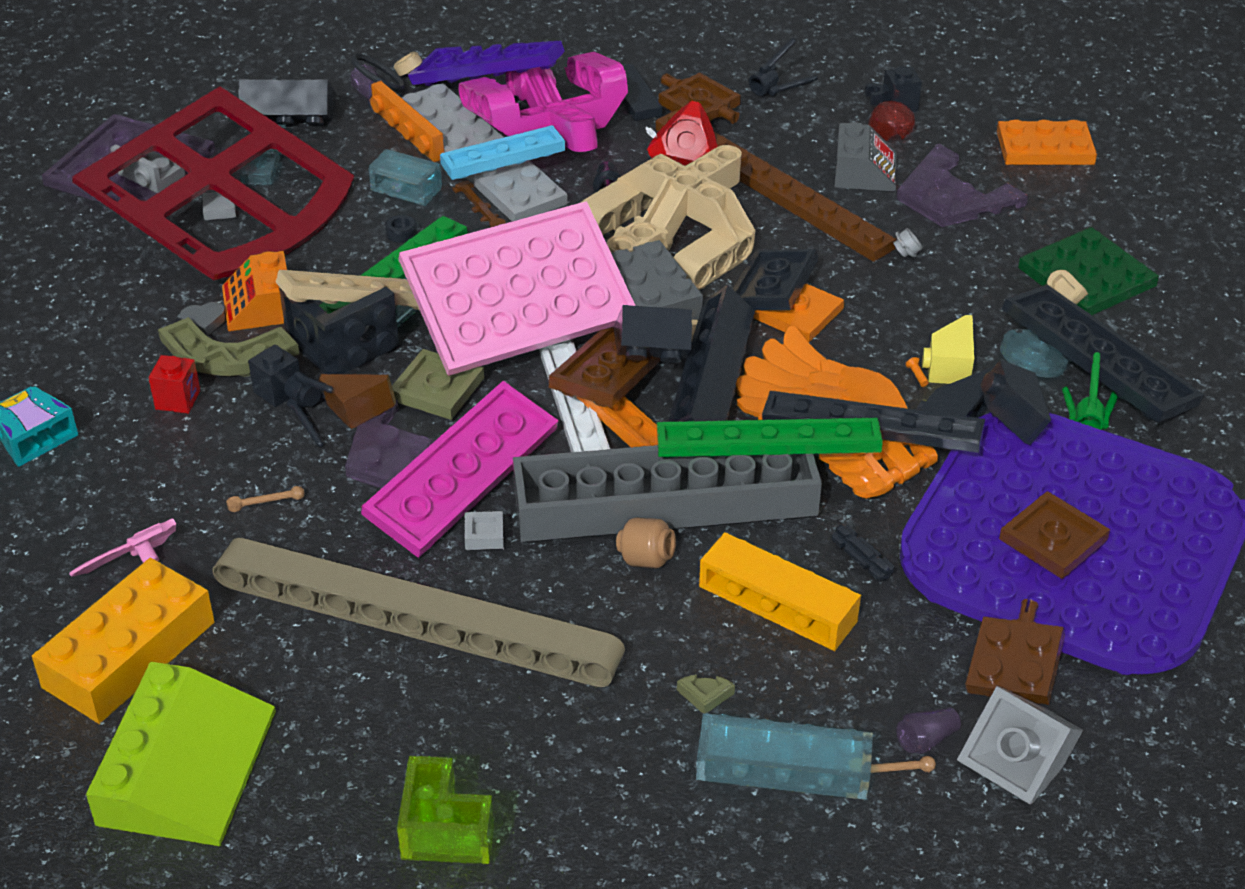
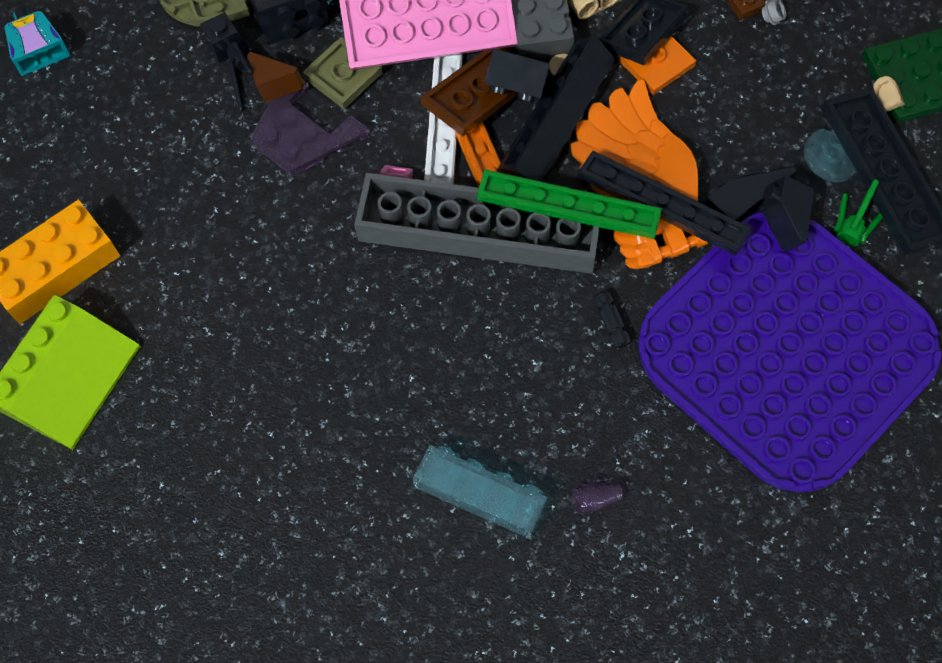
camera: 20 degrees right, 25 degrees up
(140, 544) = (83, 175): bright pink piece -> none
(174, 384) = (145, 28): red brick -> none
(235, 503) = (163, 151): medium nougat hinge -> none
(421, 612) = (263, 291): dark tan beam -> none
(438, 822) = (211, 479): clear neon green brick -> none
(459, 469) = (332, 163): dark pink plate -> none
(484, 530) = (332, 225): light grey plate -> none
(646, 542) = (447, 270): medium nougat head -> none
(705, 692) = (447, 414): olive tile -> none
(779, 591) = (532, 341): light orange brick -> none
(913, 363) = (729, 148): orange piece -> none
(926, 764) = (586, 522): medium nougat hinge -> none
(950, 352) = (761, 139): light yellow slope -> none
(1016, 656) = (687, 456): reddish brown plate -> none
(1019, 744) = (659, 531): light grey slope -> none
(1054, 534) = (764, 350): reddish brown plate -> none

